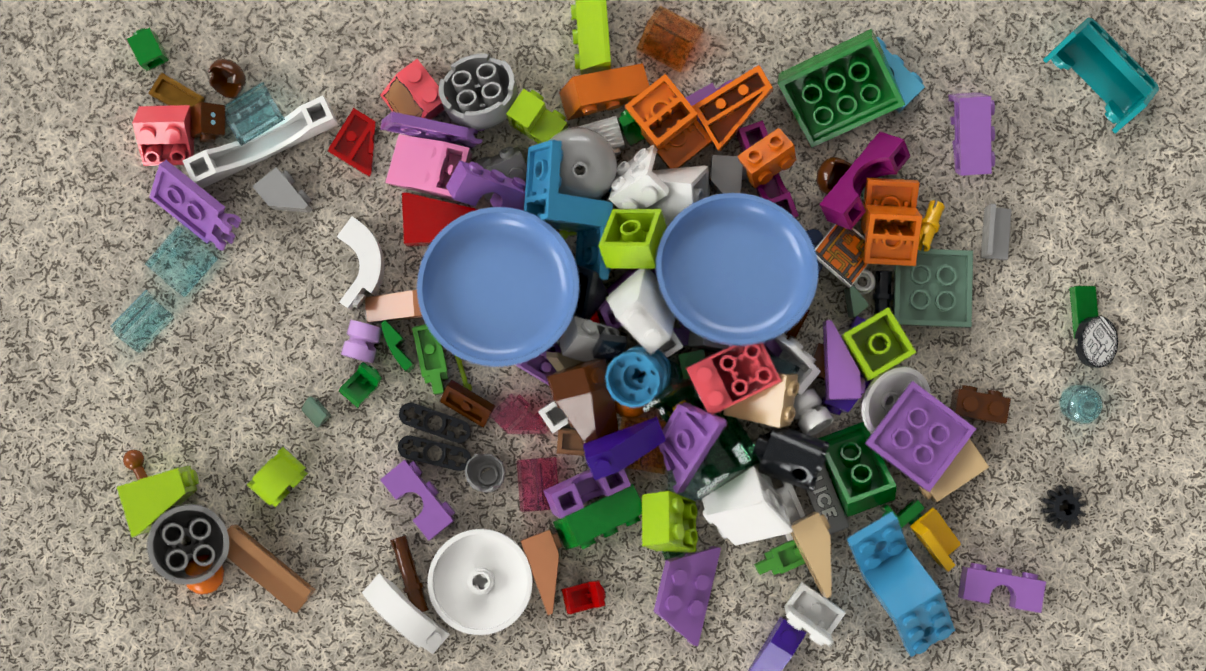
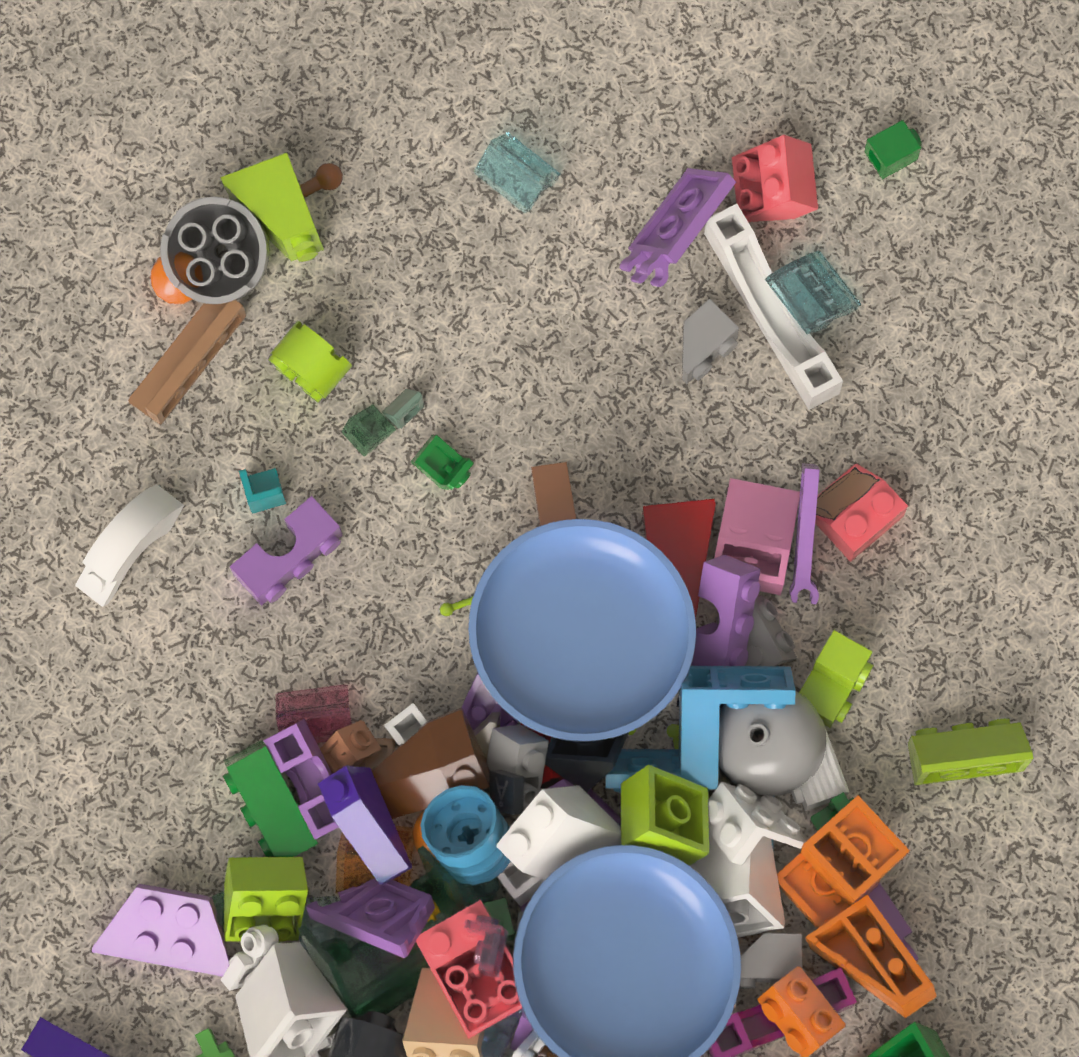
camera: 85 degrees right, 10 degrees down
(173, 93) = (834, 191): pearl gold tile -> none
(181, 261) = (602, 216): clear light blue slope -> none
(207, 121) = (796, 234): reddish brown brick -> none
(221, 71) = (869, 247): reddish brown hair -> none
(330, 438) = (367, 430): none -> clear green slope
(355, 142) = (784, 434): red wing -> none
(361, 341) = (502, 460): lavender wheel -> none
(370, 262) = (618, 464): white arch -> none
(370, 515) = (262, 490): none -> teal panel
(393, 341) = (506, 503): green slope -> none
(409, 574) = (189, 544): reddish brown pin -> none
(418, 442) = (348, 543): black beam -> none
(419, 410) = (393, 540): black beam -> none
(431, 358) = (473, 557): bright green hinge -> none
(467, 403) = (423, 609): reddish brown plate -> none
(478, 91) = (866, 593): light grey cylinder -> none
(480, 581) = (175, 641): white dish -> none
(489, 480) = (315, 643): light grey hair -> none
(516, 418) = (406, 677): clear pink slope -> none
(543, 558) = (204, 728): nougat slope -> none
(565, 459) = (349, 746): none -> nougat bracket
(583, 596) = (157, 785): red bracket -> none
(602, 90) = (885, 773): orange wedge -> none
(669, 38) = (975, 867): clear orange slope -> none
(703, 529) = (255, 945): none -> white plate
(726, 362) = (491, 950): none -> bracket

